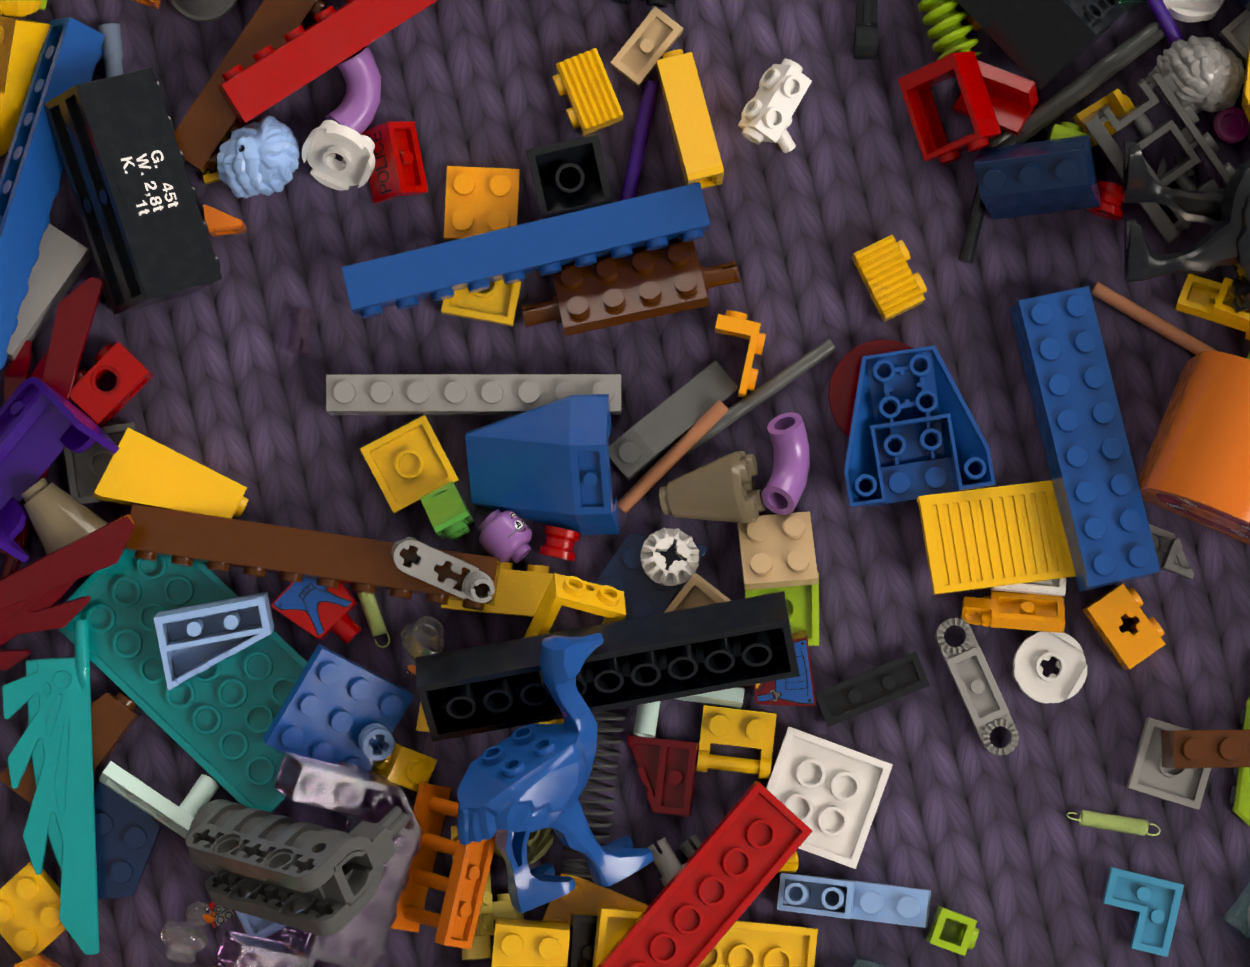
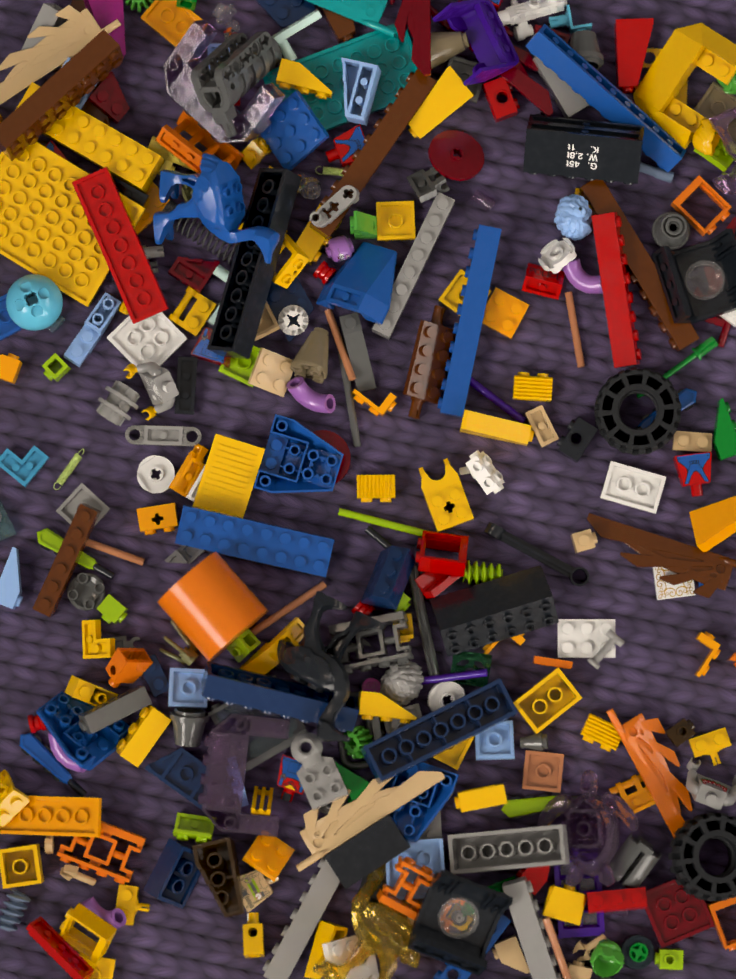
camera: 115 degrees right, 0 degrees up
(222, 223) = (552, 186): orange slope -> none
(237, 752) = (296, 76): none -> yellow slope
(260, 390) = (455, 142): none -> dark red piece
(328, 443) = (422, 184): none -> dark grey plate
(369, 732) = (266, 142): medium blue bush -> none
(452, 69) = (574, 329): none -> nougat bar
(569, 176) = (494, 358): black slope -> none
(843, 159) = (445, 491): none -> yellow brick
(897, 735) = (158, 385): none -> light grey torso
(942, 240) = (380, 522): none -> lime piece
(962, 790) = (118, 403): none -> light grey piece
(1216, 672) = (115, 552): none -> nougat bar

